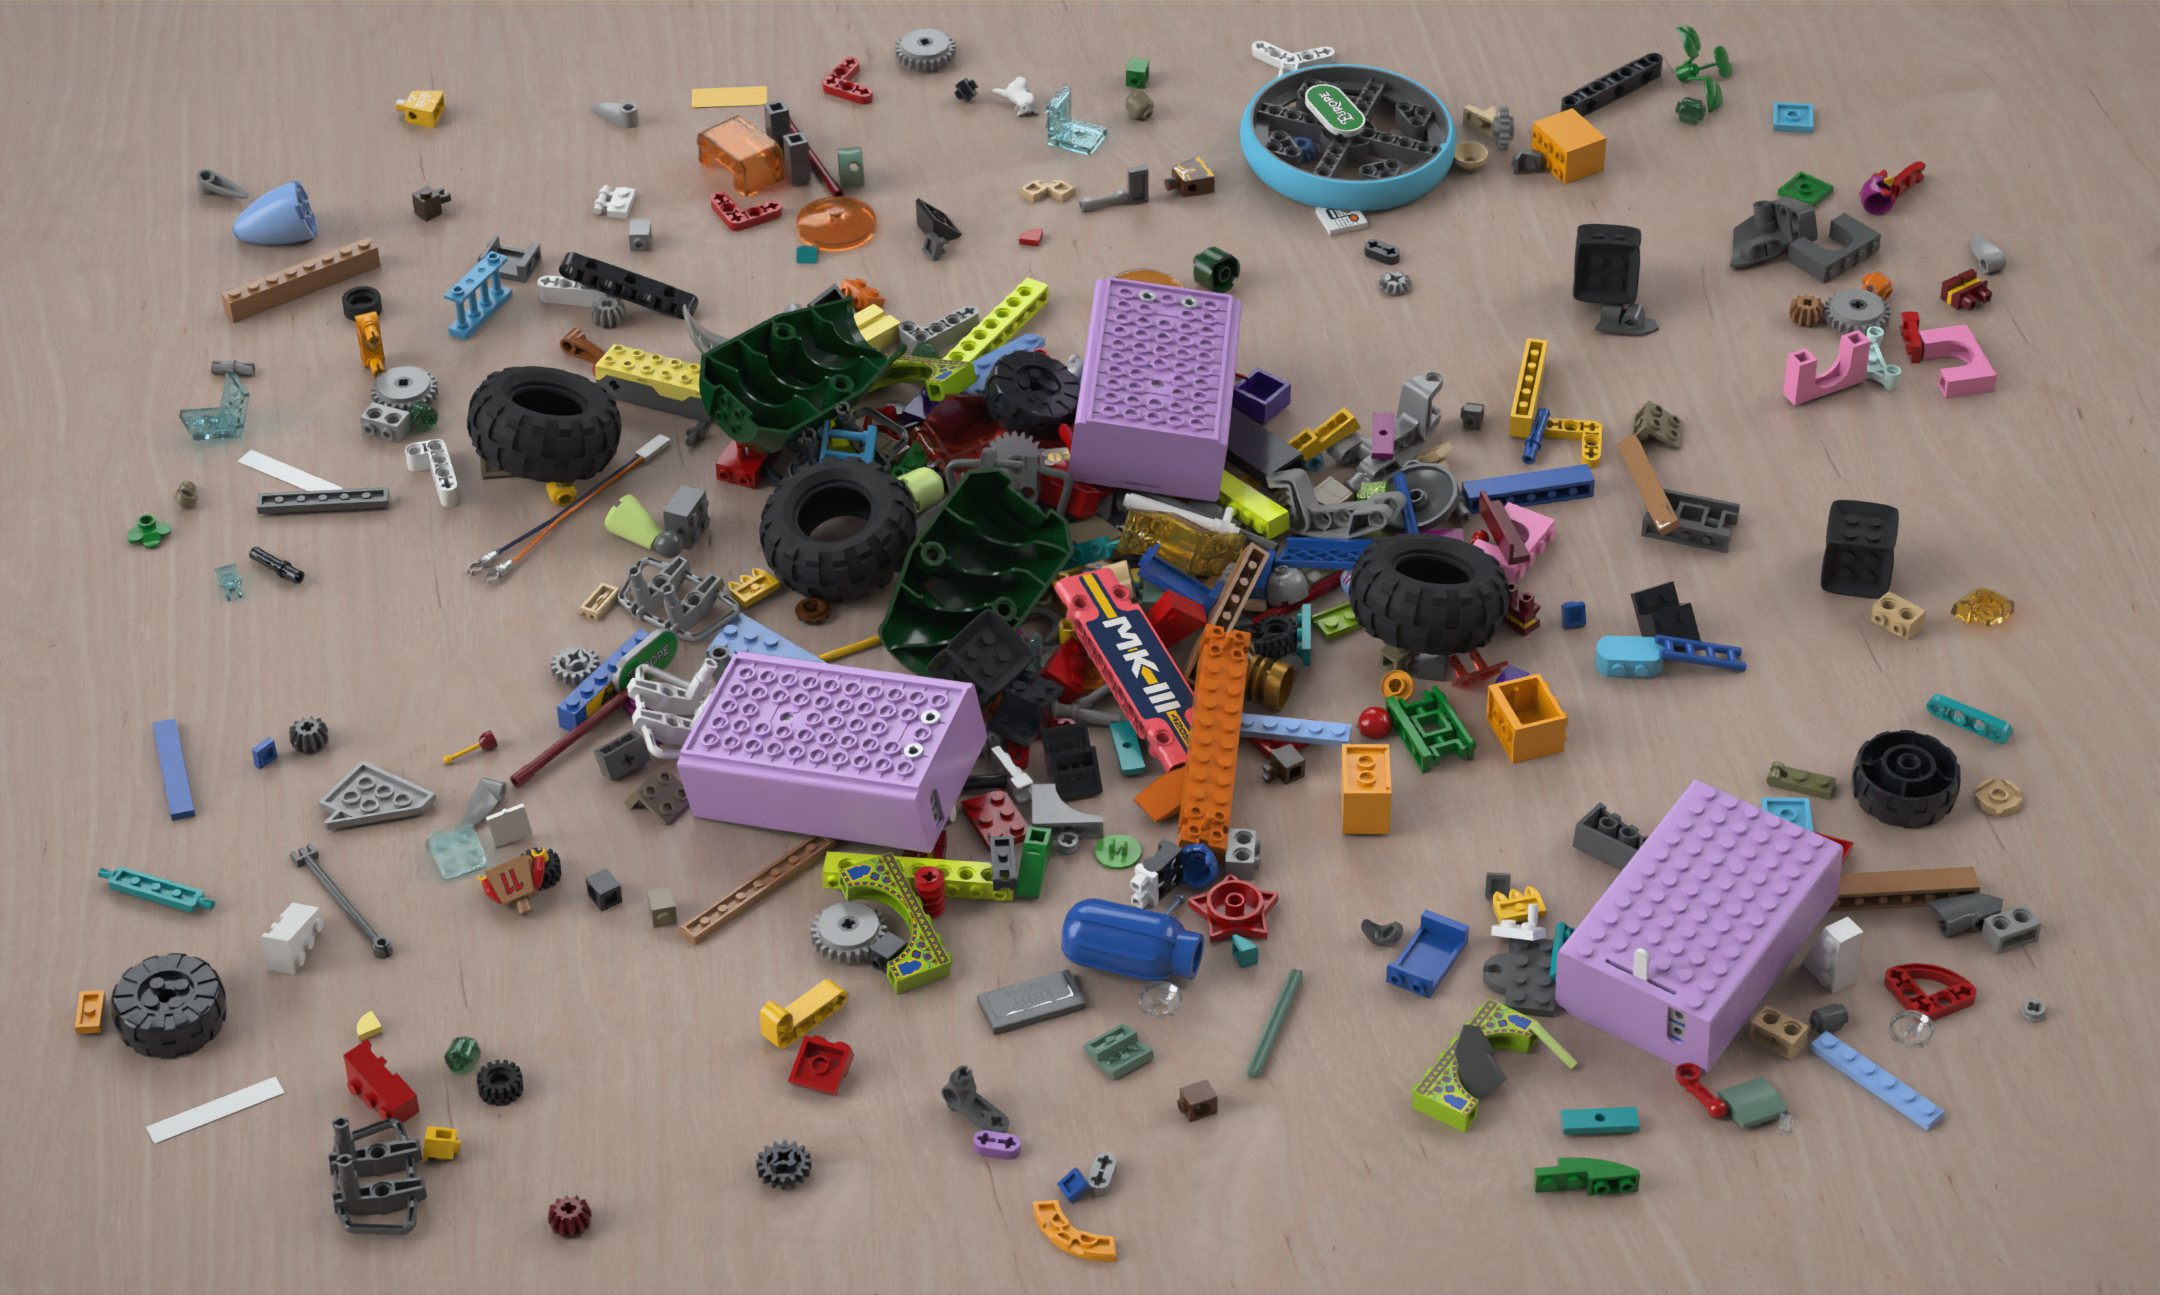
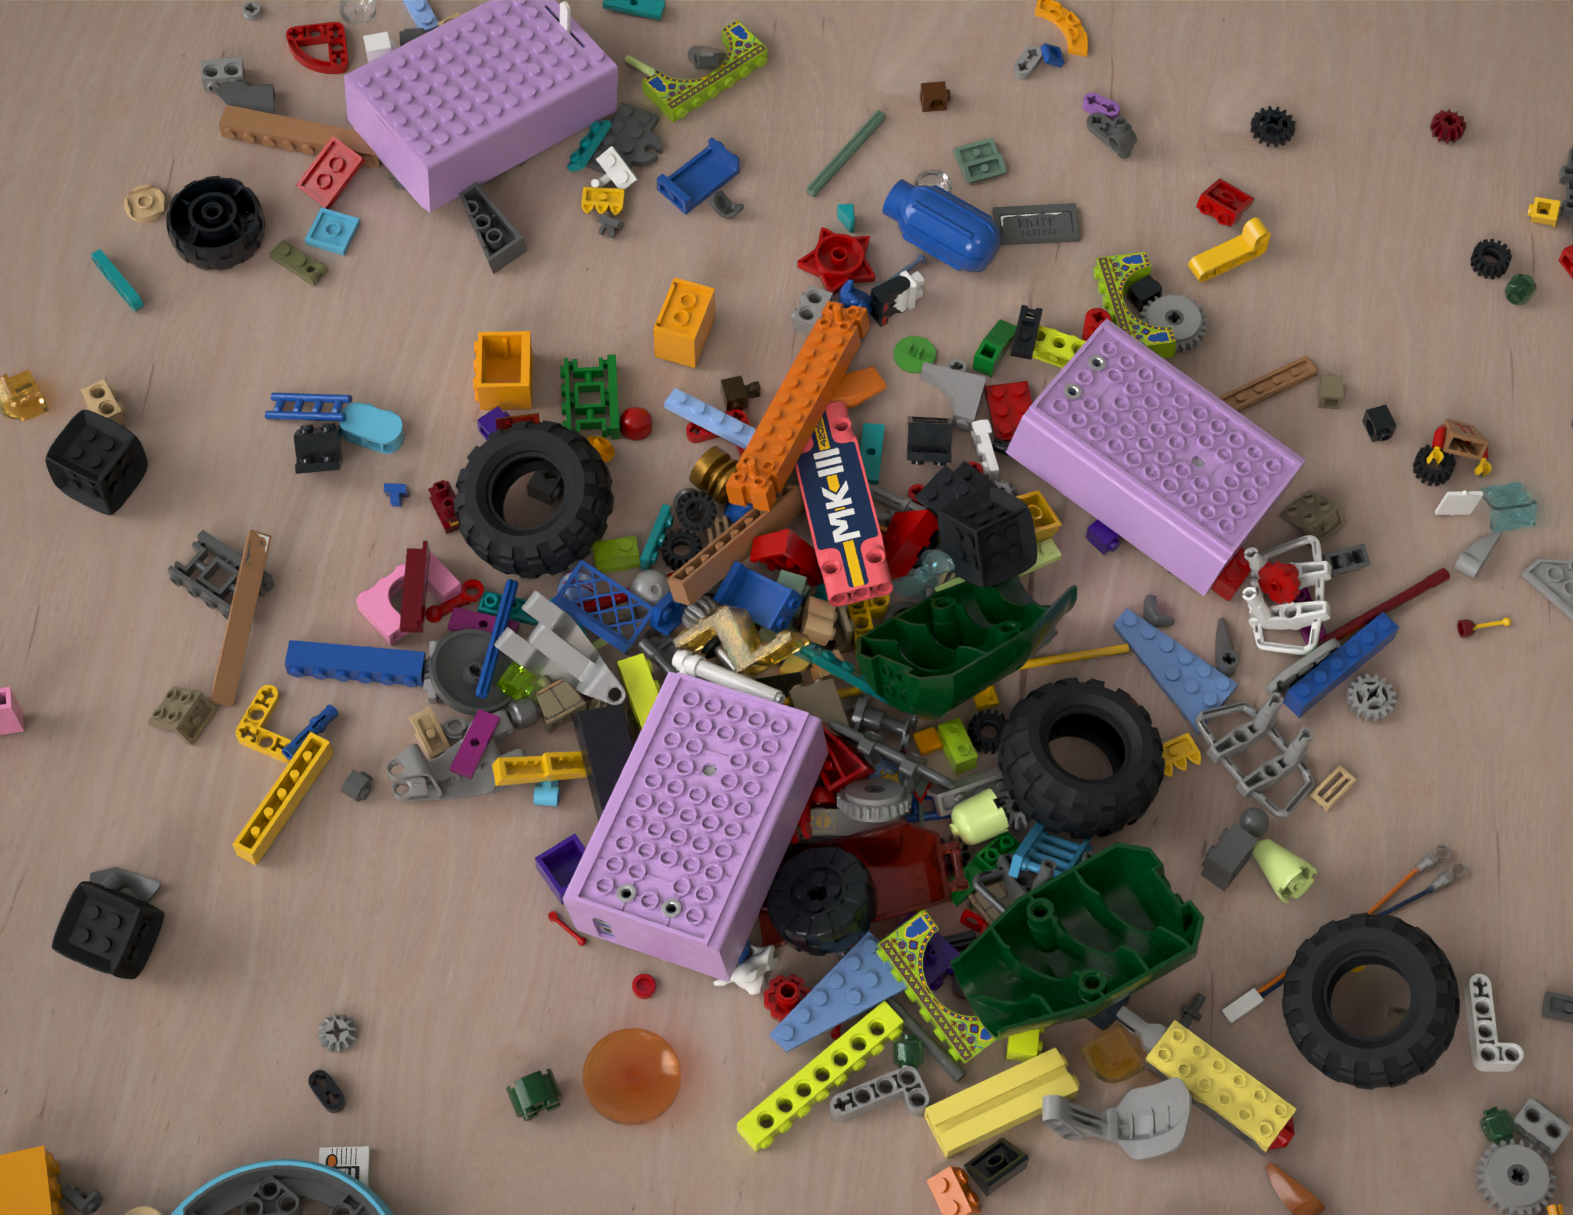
camera: 165 degrees left, 20 degrees up
(681, 694) = (1279, 581): none -> red plant

